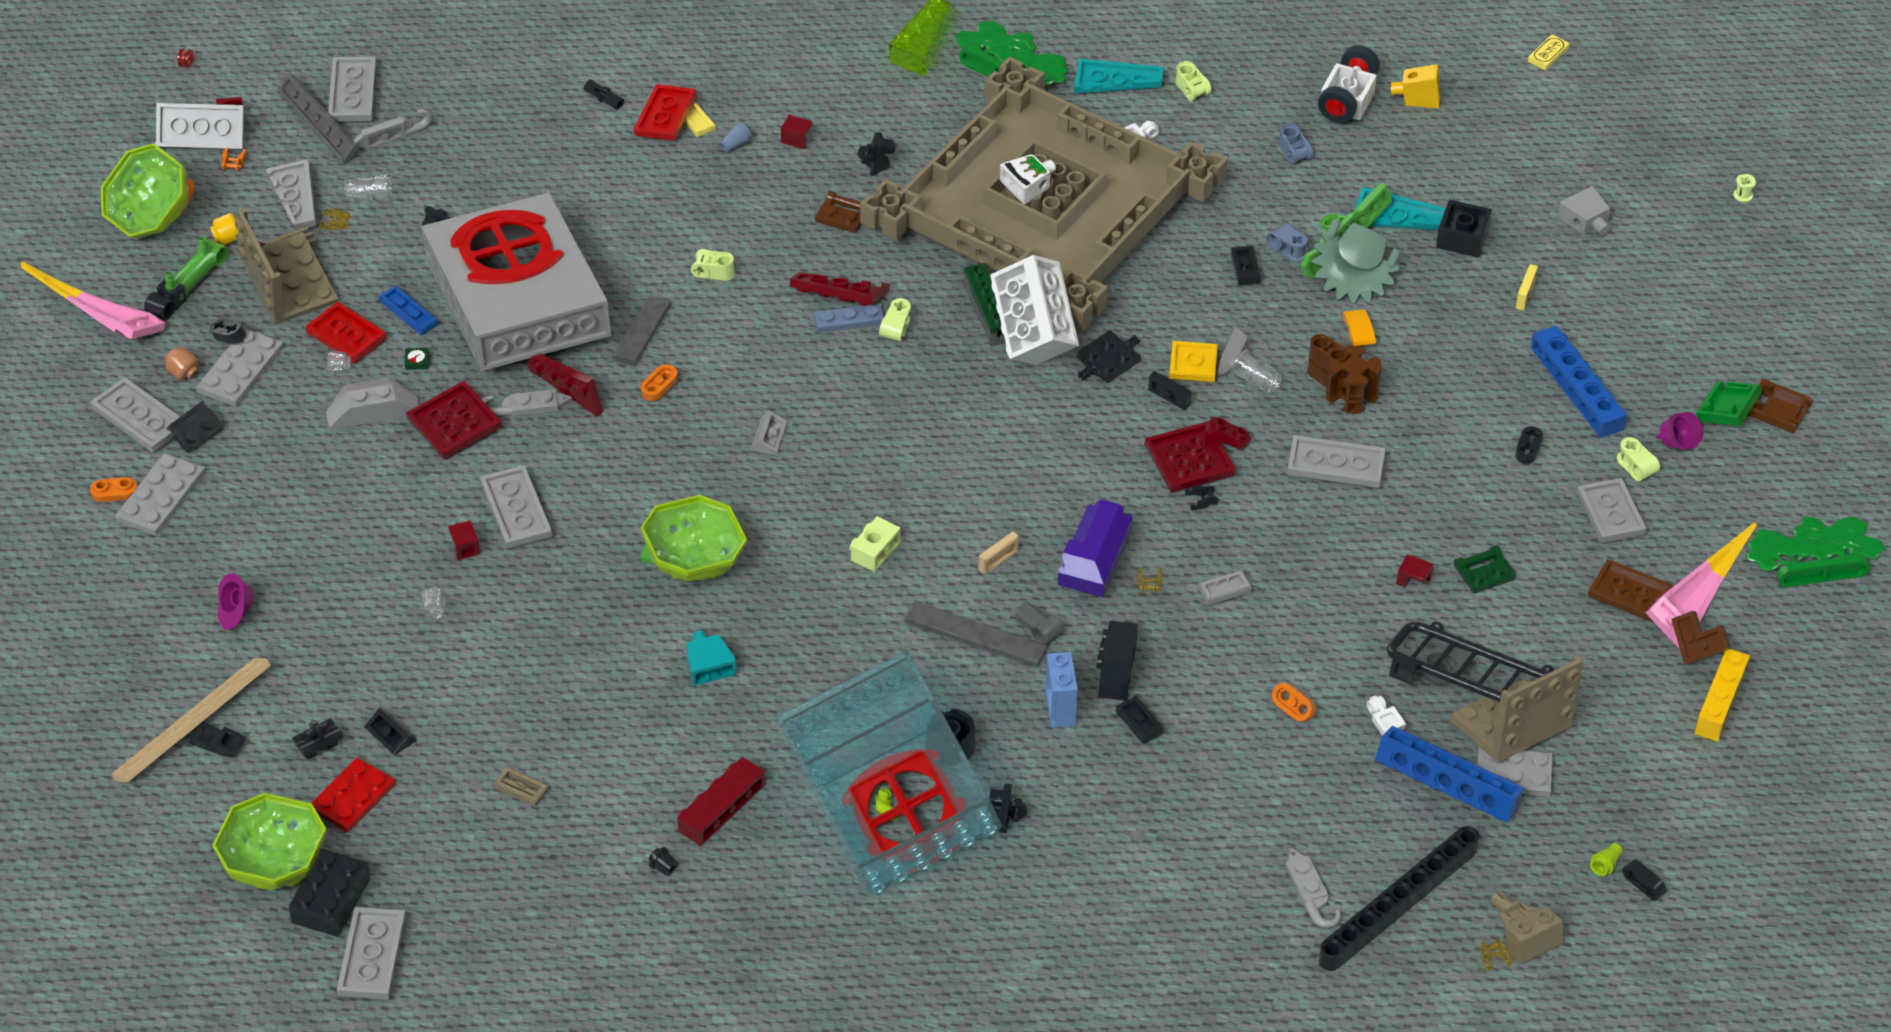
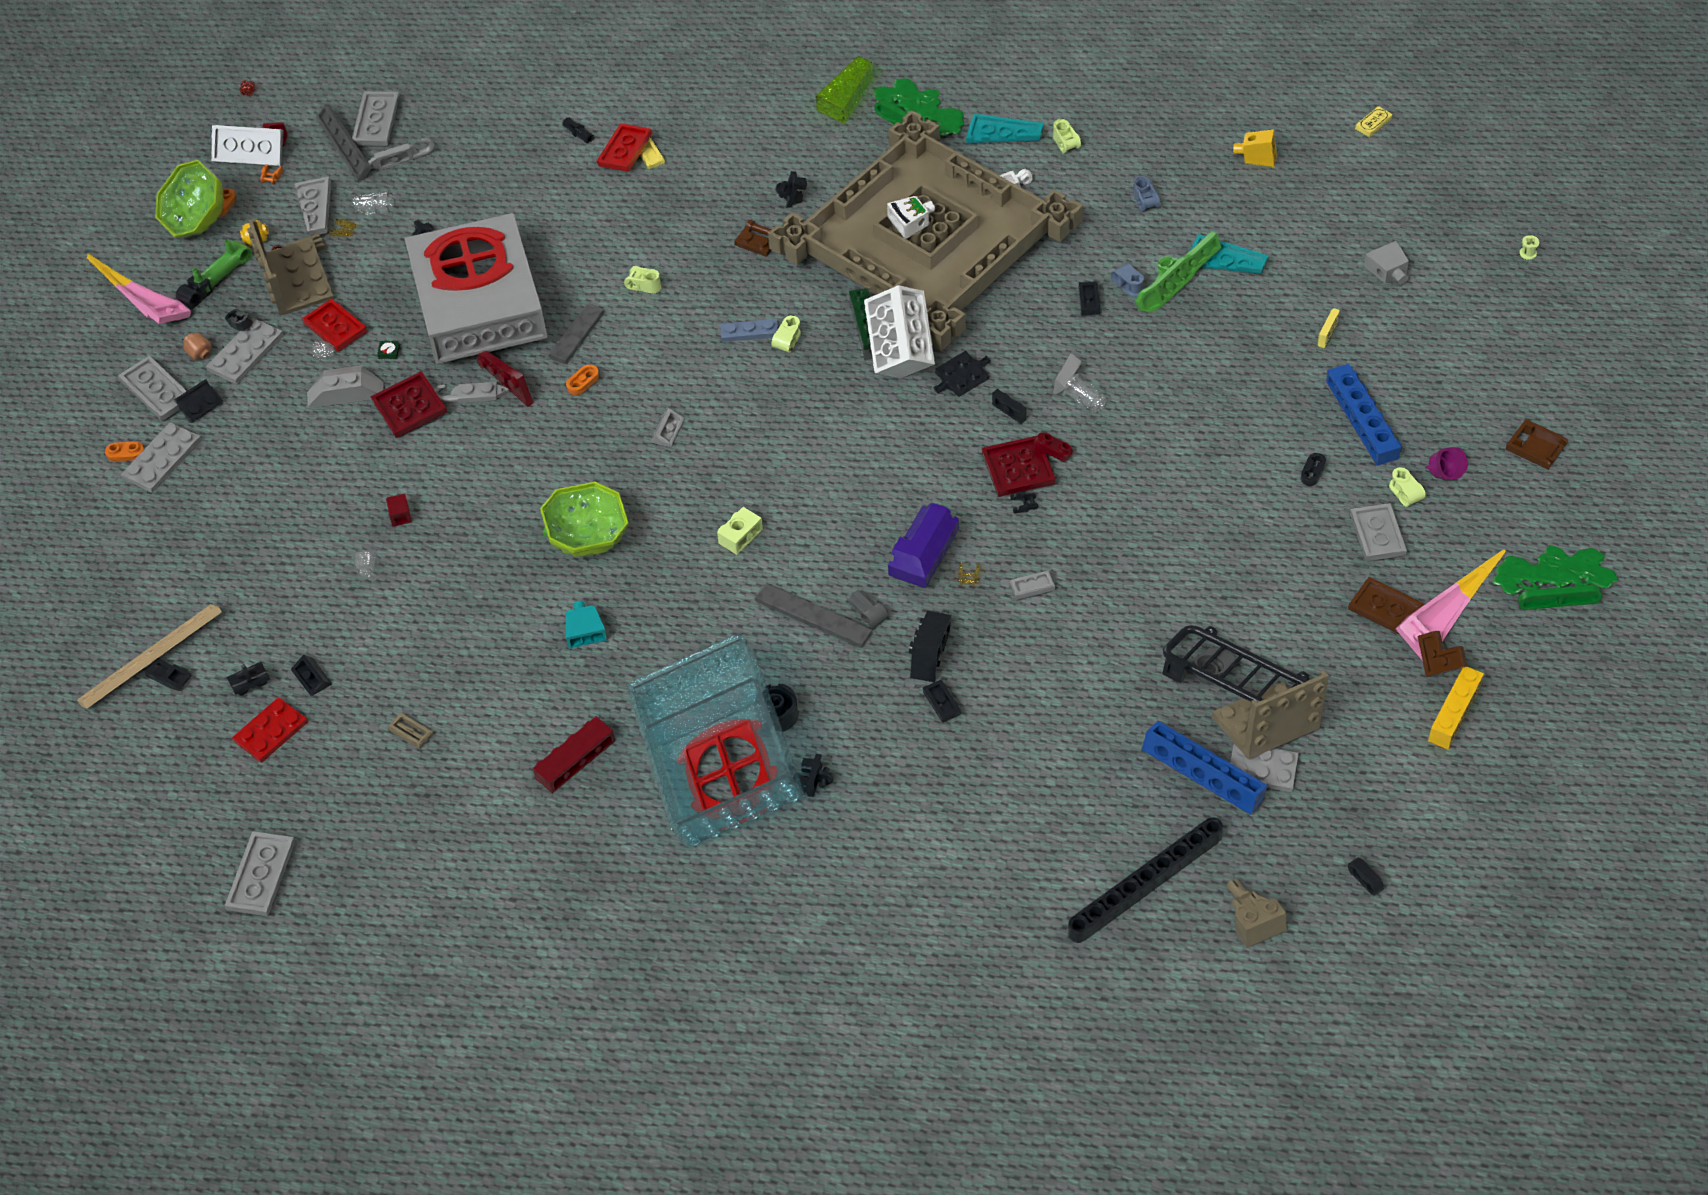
camera: 10 degrees right, 5 degrees up
(234, 600) = (203, 553): magenta piece -> none
(270, 841) = (188, 770): clear light blue rock -> none
(329, 892) = (233, 817): black brick -> none
(408, 310) = (389, 308): blue tile -> none
(515, 507) = (446, 482): light grey plate -> none
(662, 861) = (516, 806): black hose -> none
(736, 137) = (679, 171): sand blue cone -> none
(795, 131) = (728, 166): dark red panel -> none
(840, 288) = (745, 304): dark red wing -> none
(884, 801) = (712, 763): lime arm -> none
(998, 553) = (842, 544): tan tile -> none
(1061, 689) = (875, 671): medium blue window -> none
(1193, 361) = (1033, 381): yellow plate -> none
(1294, 704) = (1078, 694): orange plate -> none
(1309, 888) = (1069, 864): light grey plate -> none
(1336, 461) = (1143, 476): light grey plate -> none
(1343, 367) = (1159, 398): reddish brown connector -> none
(1350, 85) = (1198, 145): brick -> none
(1354, 262) = (1181, 300): sand green piece -> none
(1359, 327) = (1179, 357): light orange slope -> none
(1383, 717) = (1153, 711): white plate -> none
(1414, 568) = (1197, 577): dark red panel -> none
(1464, 228) = (1280, 273): black brick -> none
(1487, 575) = (1262, 585): dark green plate -> none
(1502, 952) = (1231, 936): clear yellow piece -> none
(1605, 860) = (1332, 856): lime cone -> none
(1728, 403) = (1493, 442): green container -> none

